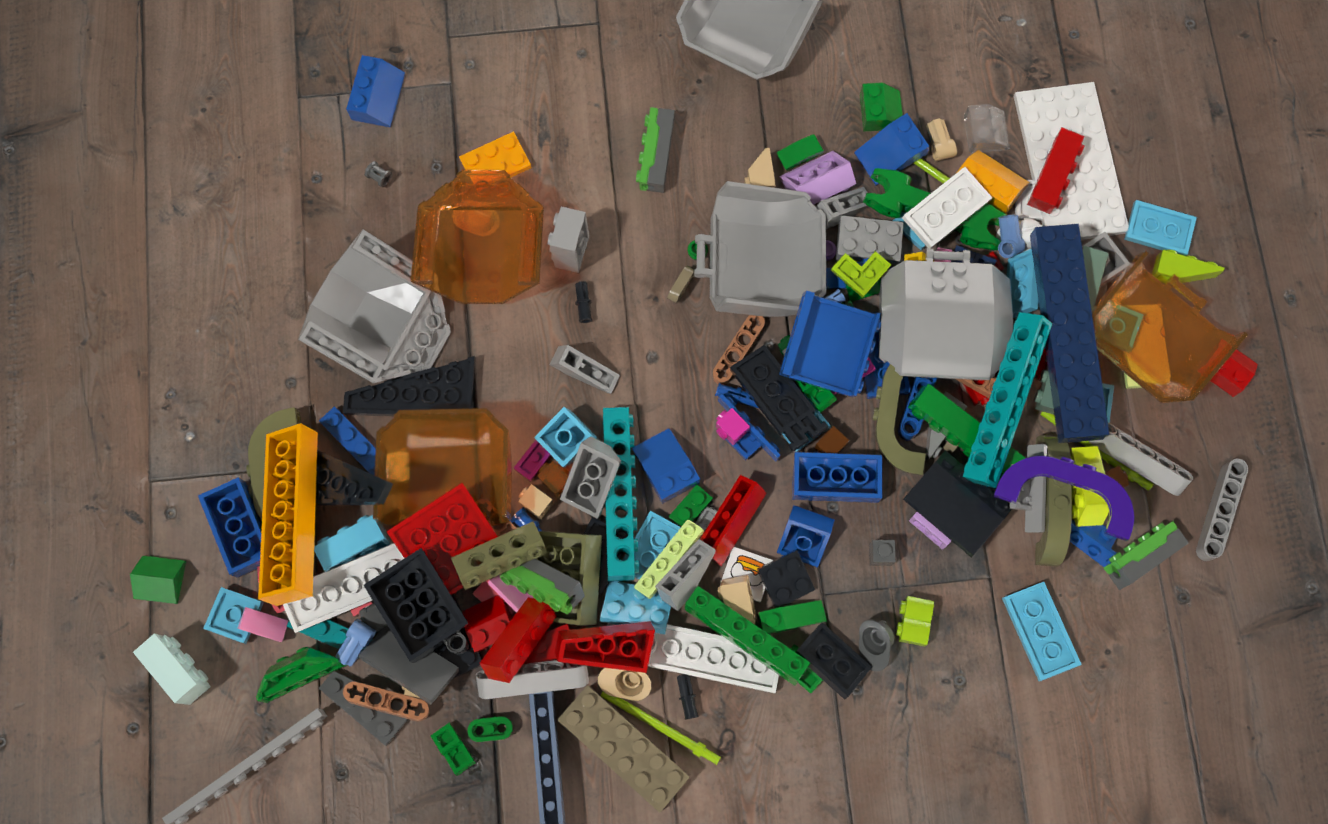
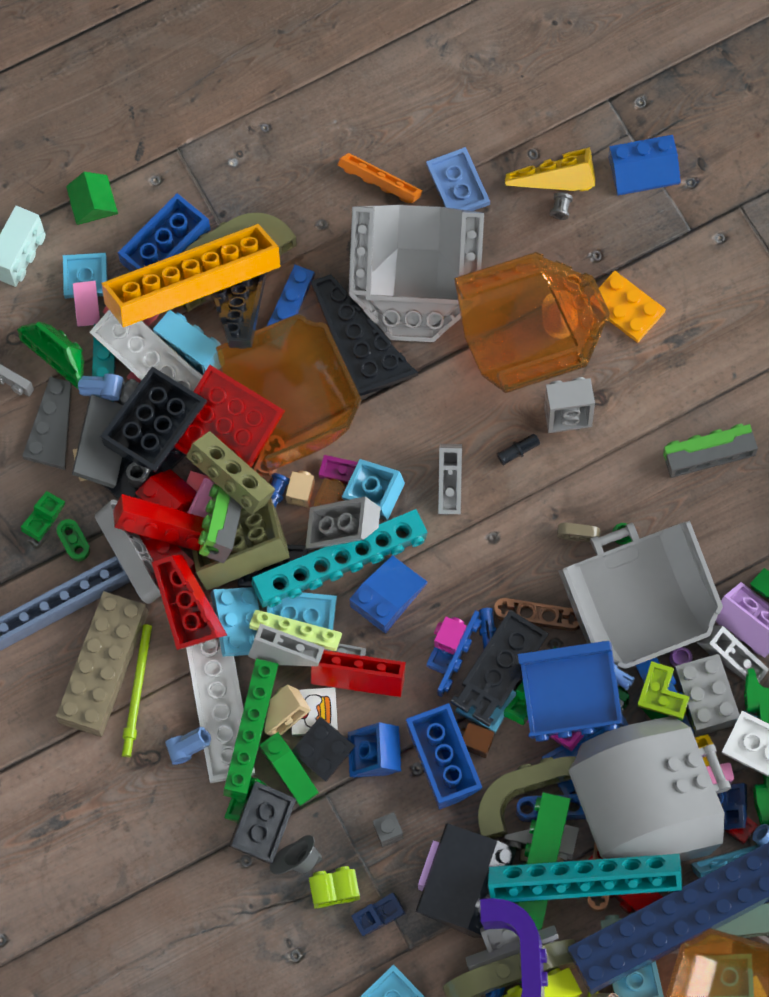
camera: 70 degrees right, 5 degrees down
(269, 316) = (377, 176): none -> orange plate
(311, 249) = (458, 181): none -> medium blue plate
(350, 155) = (570, 173): none -> yellow wedge
(385, 704) = (60, 438): nougat beam -> none
(624, 684) = (161, 640): tan piece -> none
(687, 696) = (173, 703): black axle -> none
(691, 506) = (358, 633): green plate -> none
(734, 704) = (183, 746): none -> medium blue piece
(761, 171) = (731, 561): tan slope -> none
(951, 592) = (378, 914): none -> dark blue slope

